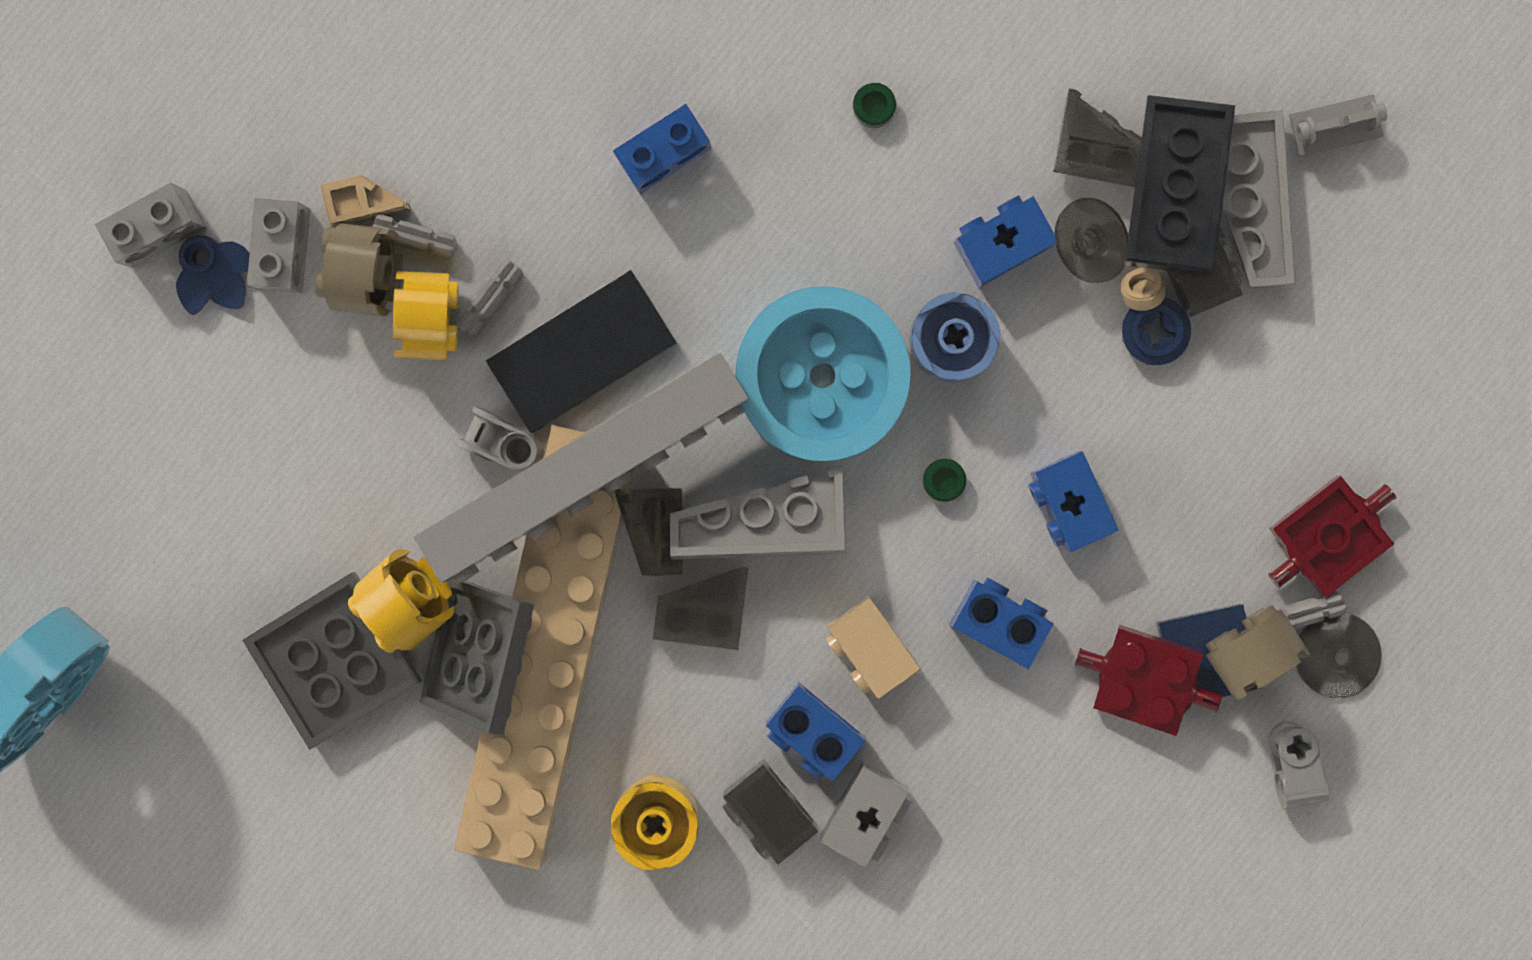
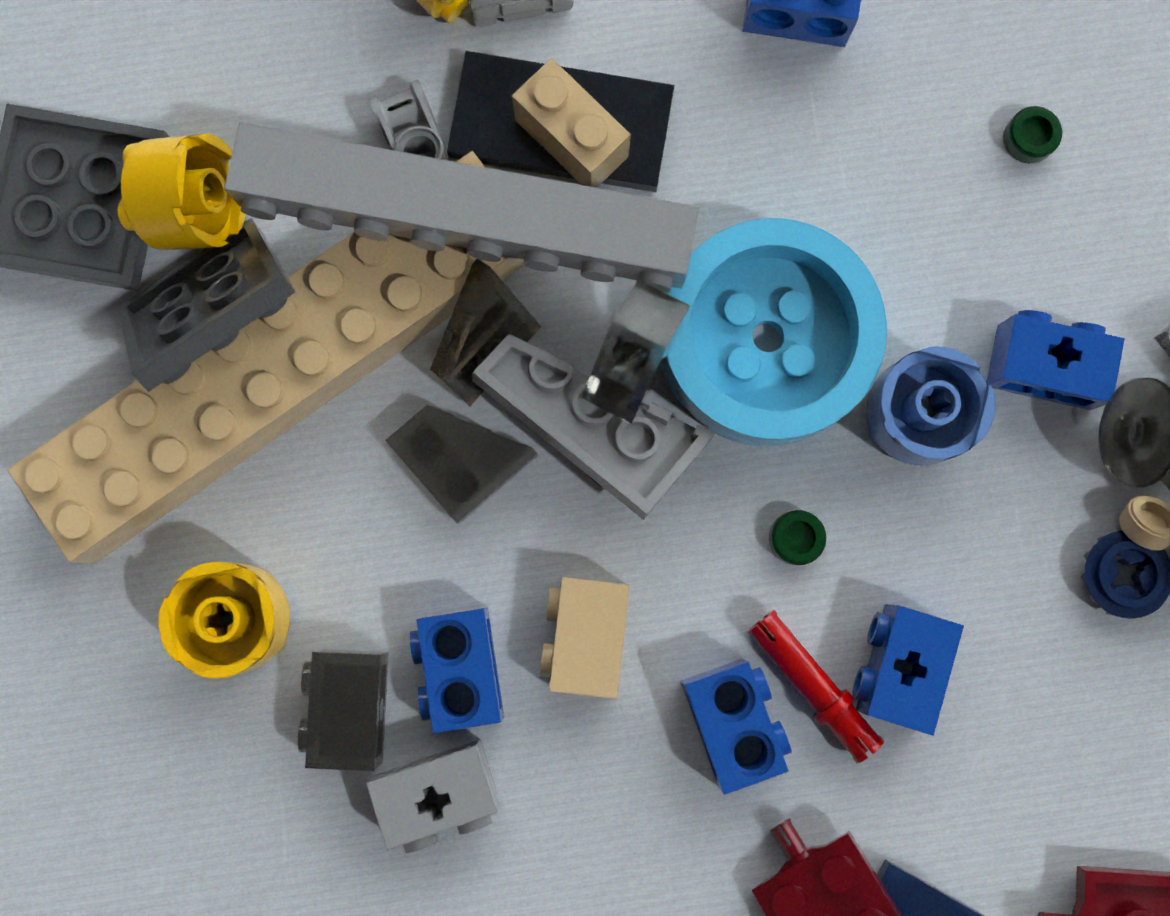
camera: 40 degrees right, 5 degrees down
(595, 356) = (571, 125): none -> tan brick
(756, 464) = (634, 351): none -> clear smoke brick
(1029, 559) = (816, 687): none -> red pin

